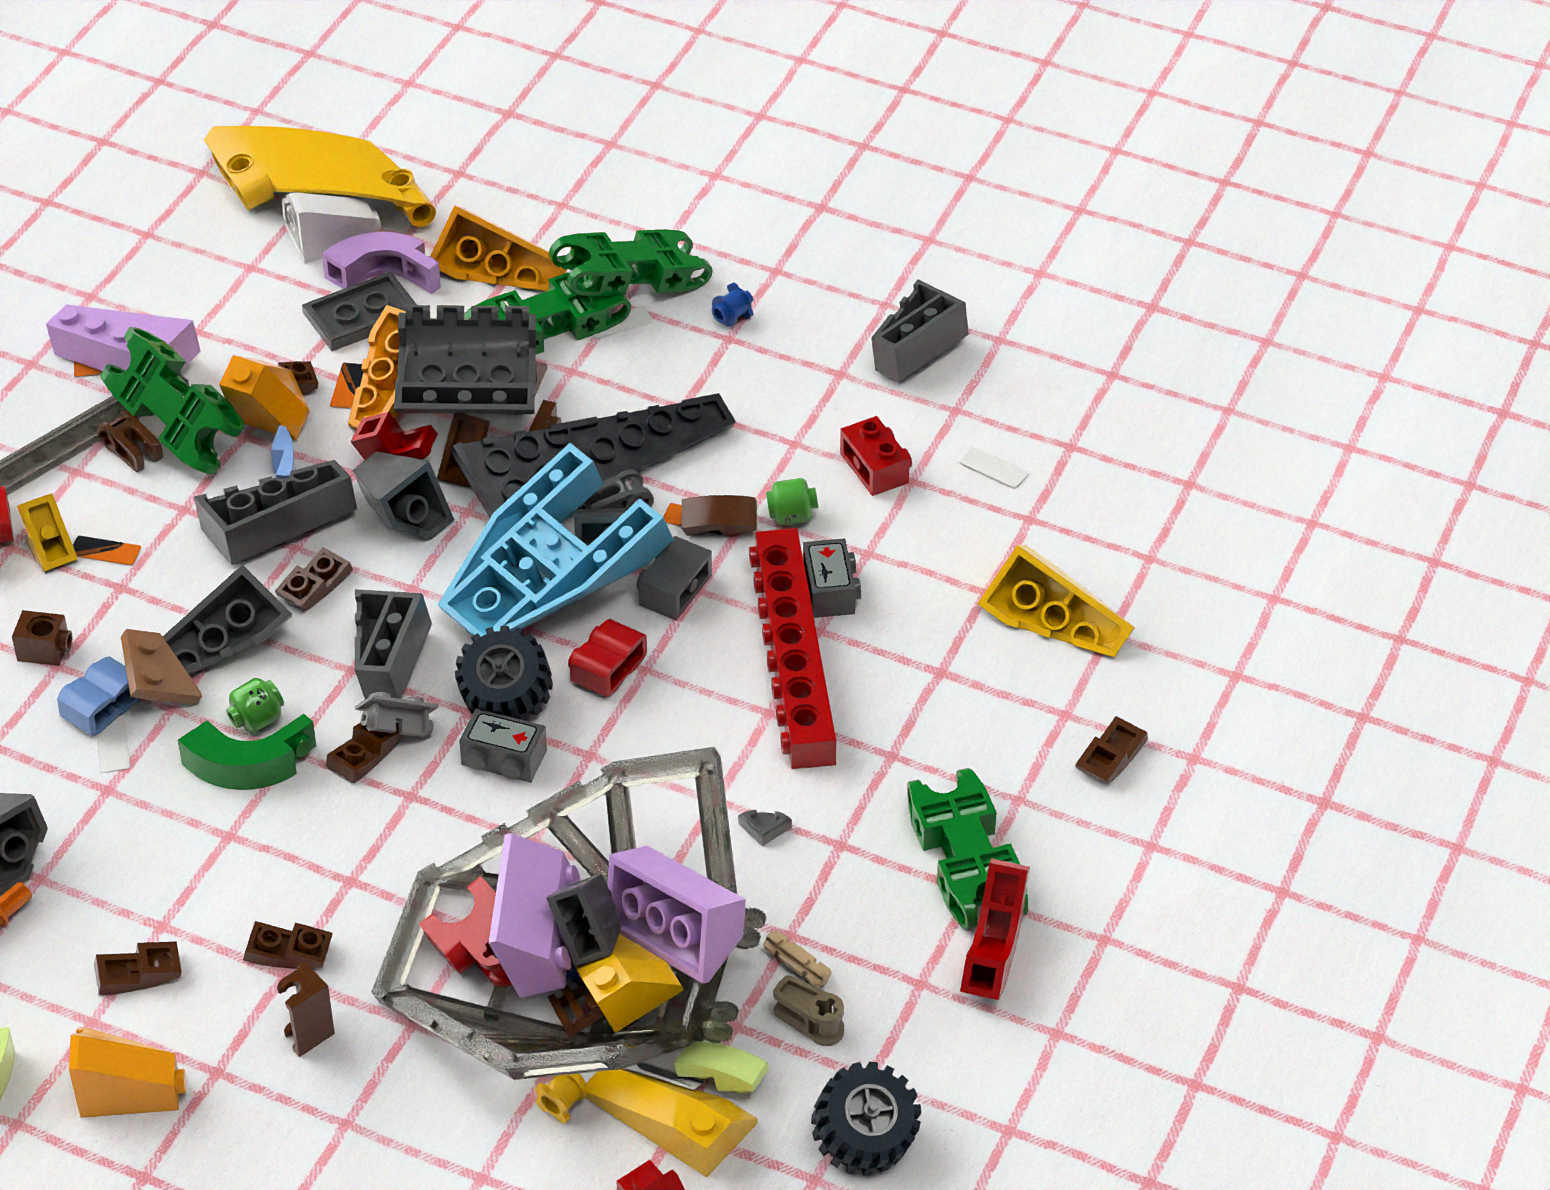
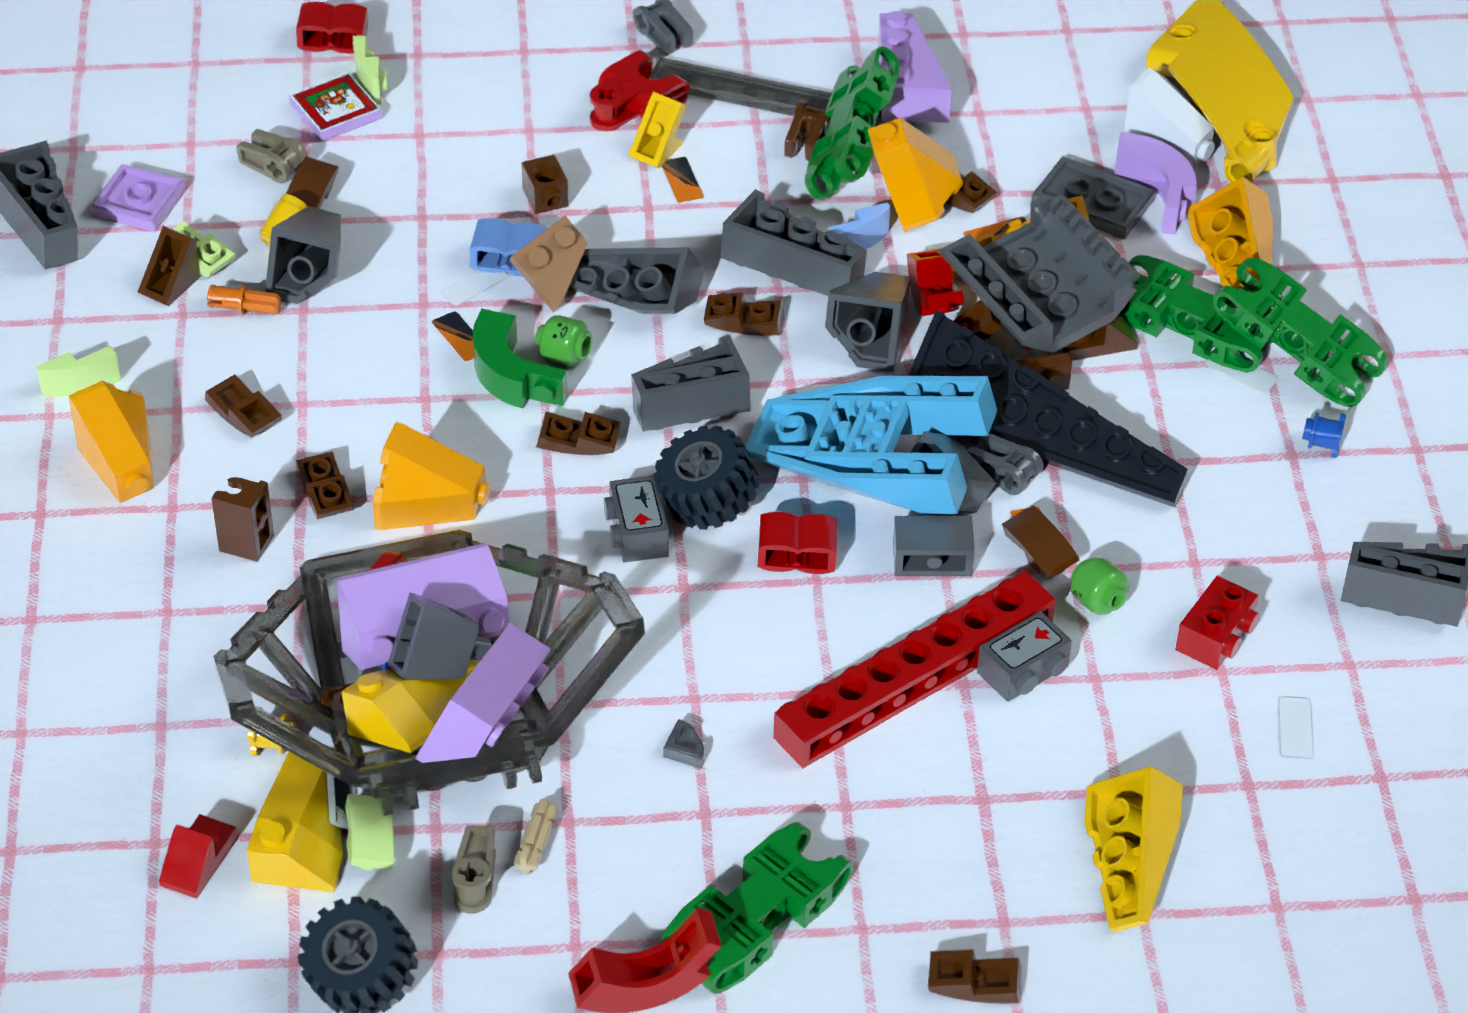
camera: 60 degrees right, 0 degrees up
(167, 781) = (457, 333): none -> sticker
(353, 868) = (426, 483): none -> light orange slope
(382, 712) = (605, 418): light grey hinge -> none

